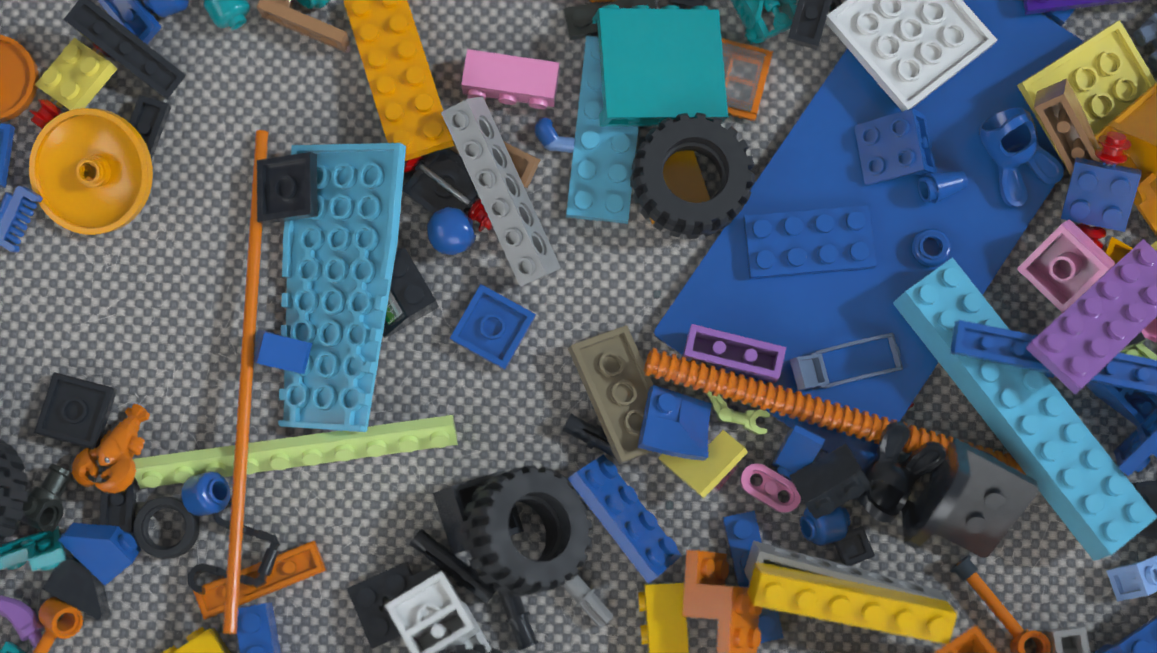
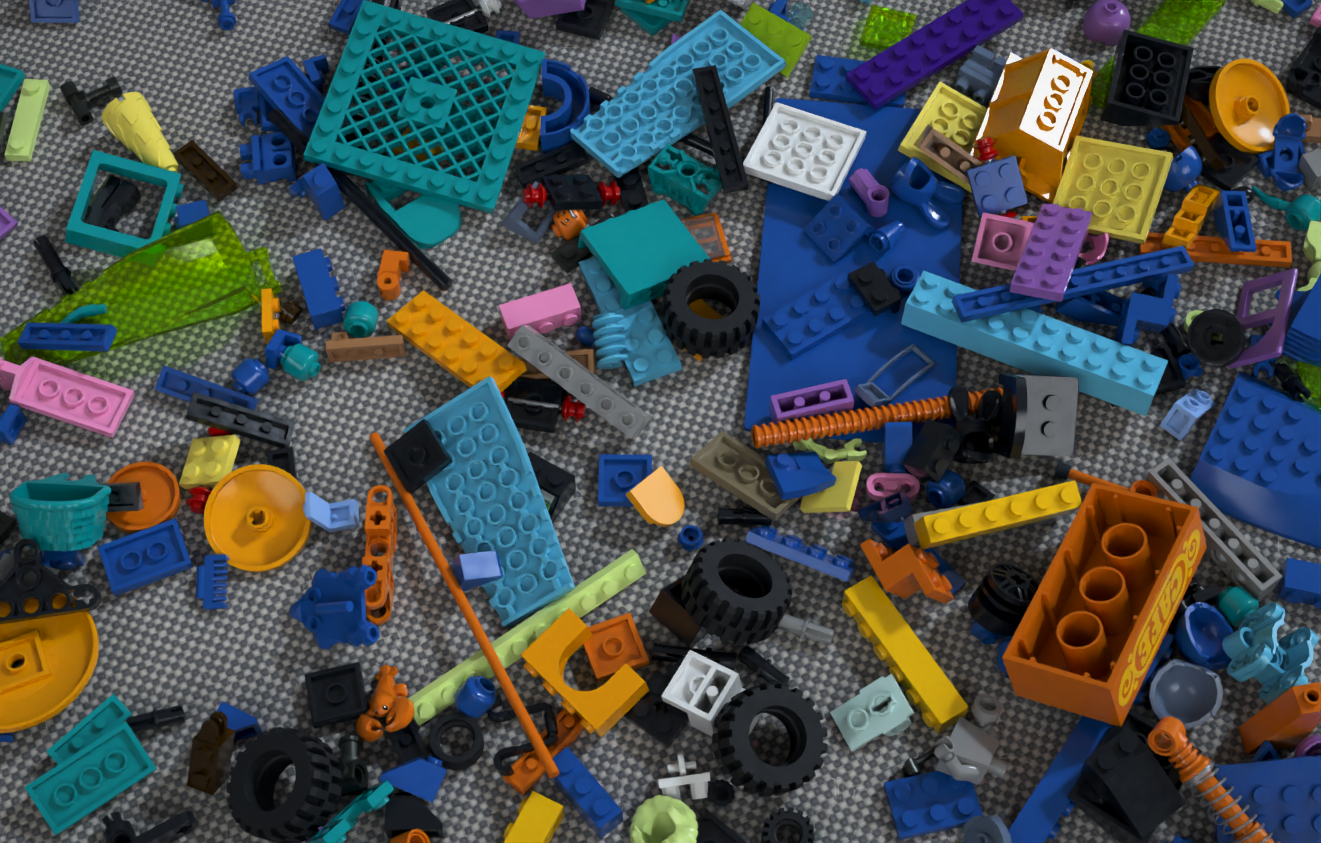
camera: 25 degrees left, 20 degrees down
(113, 323) = (337, 608): none -> blue shield
(165, 204) = (331, 516): none -> light blue bracket
(177, 302) = (381, 536): none -> orange piece
(297, 496) = (597, 708): none -> light orange arch
(377, 511) = (613, 645): none -> orange plate
(450, 231) = (556, 429): blue hair -> none
(512, 370) = (658, 499): none -> light orange tile
(528, 438) = (690, 531): none -> blue plate
(563, 155) = (608, 340): none -> medium azure piece
(747, 518) = (888, 509): none -> dark blue wing
(886, 247) = (875, 289): none -> black bracket
(955, 118) = (874, 195): none -> medium lavender piece

